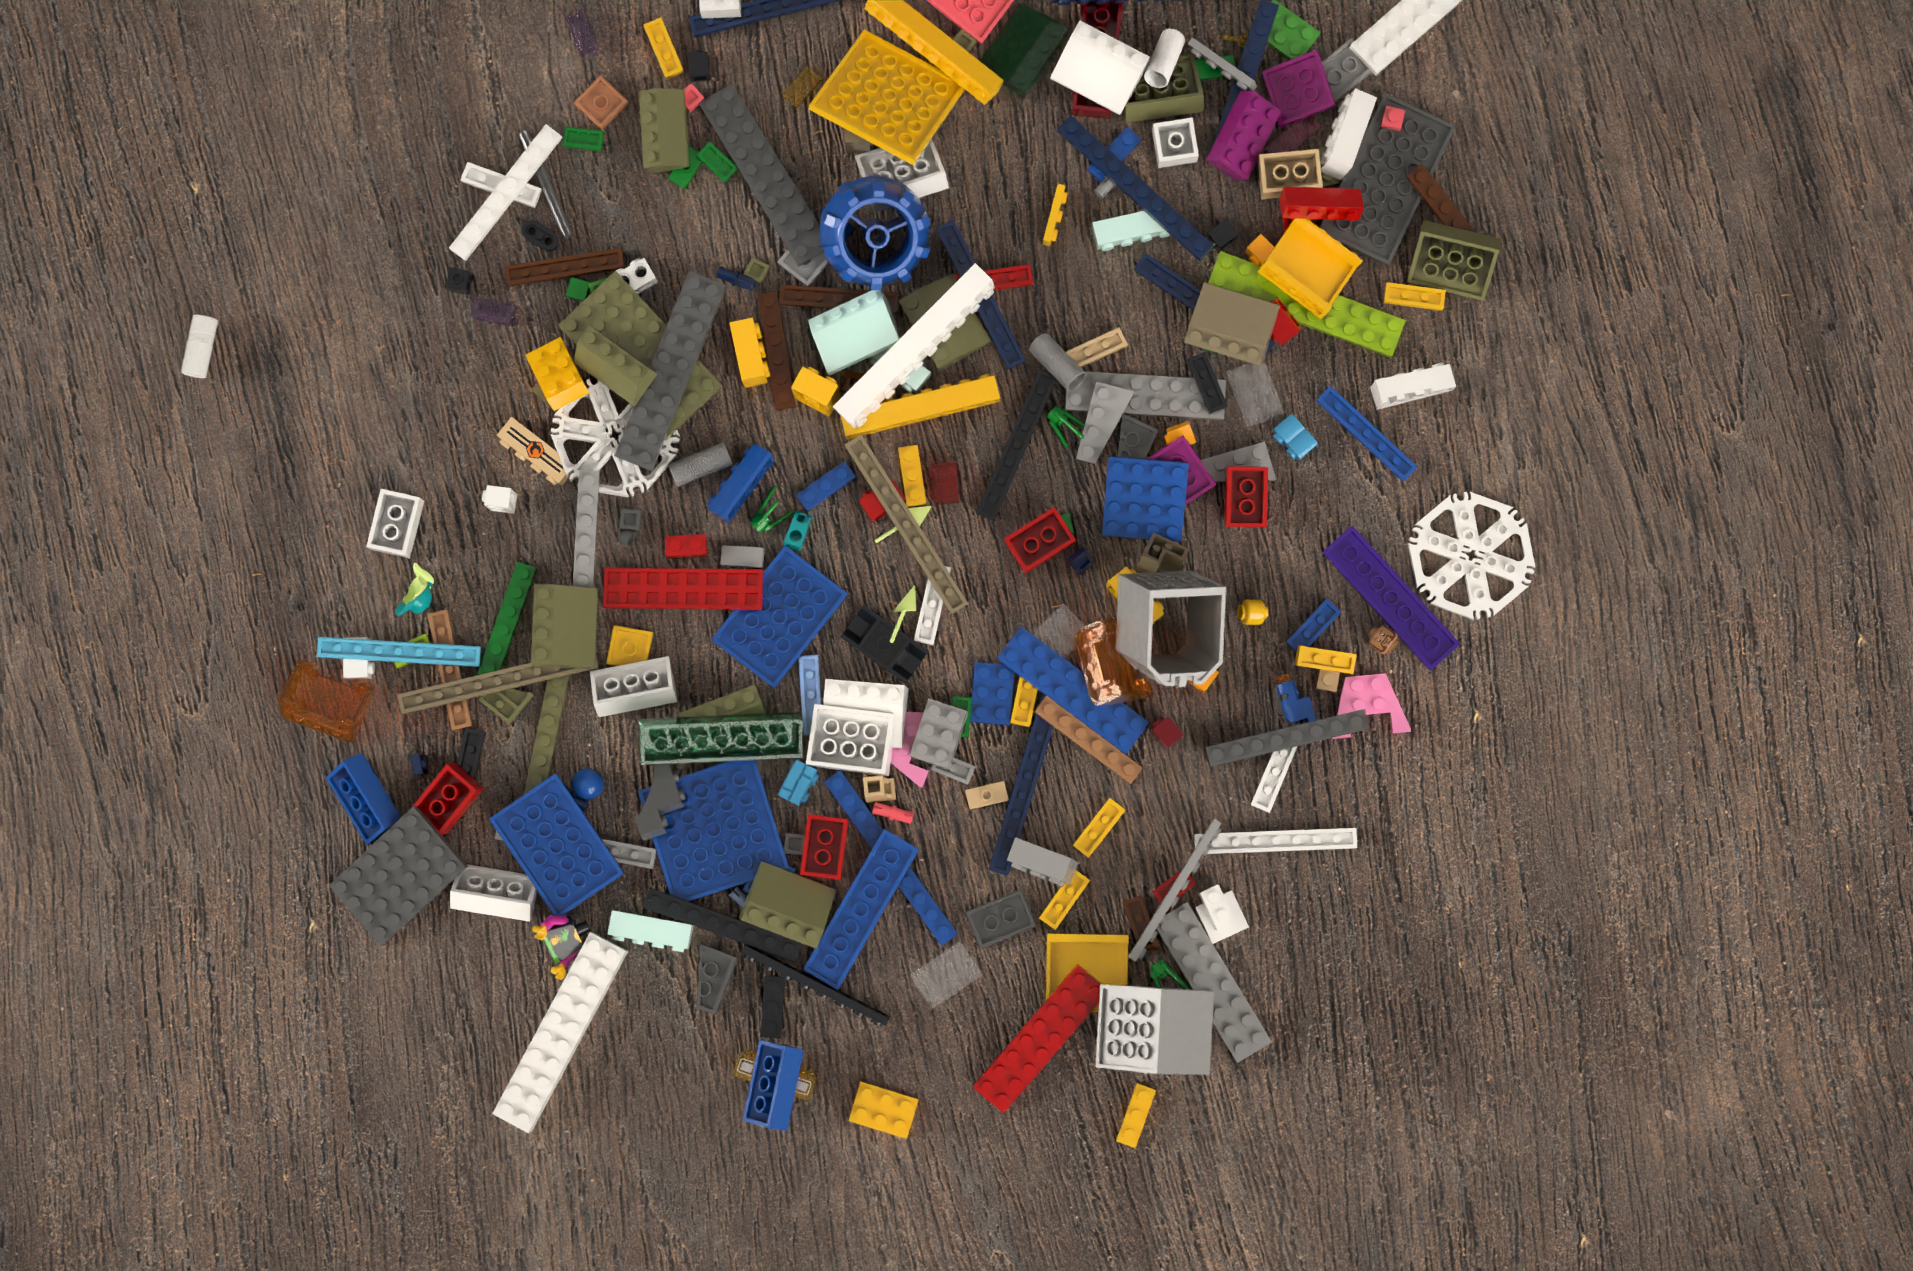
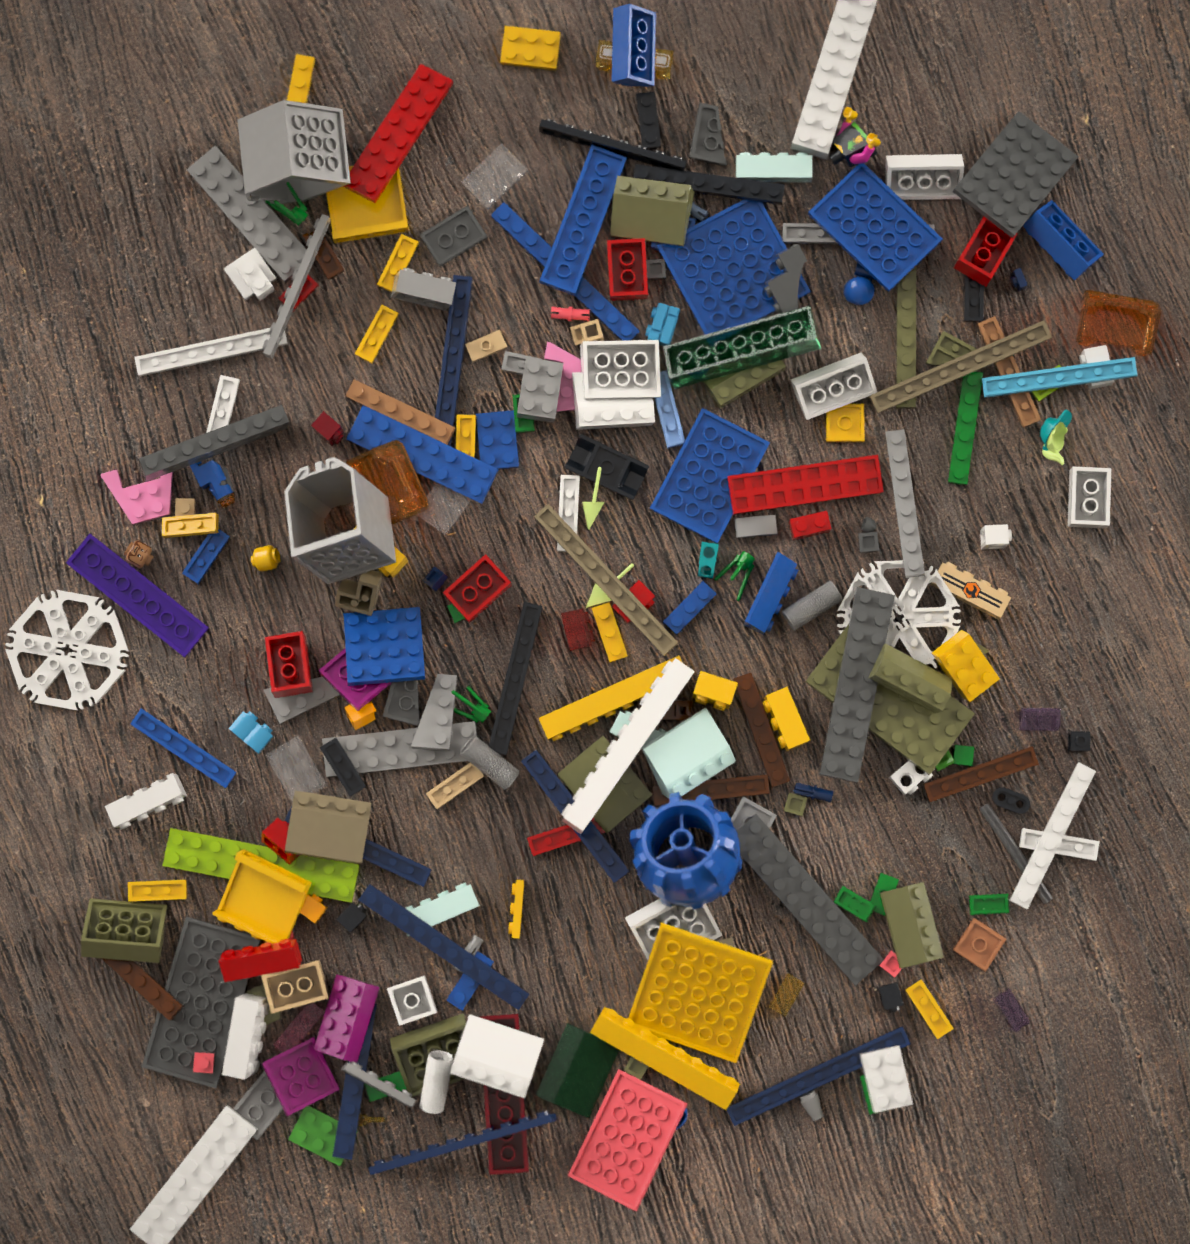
camera: 170 degrees right, 0 degrees up
(564, 626) = (908, 425): olive slope -> none

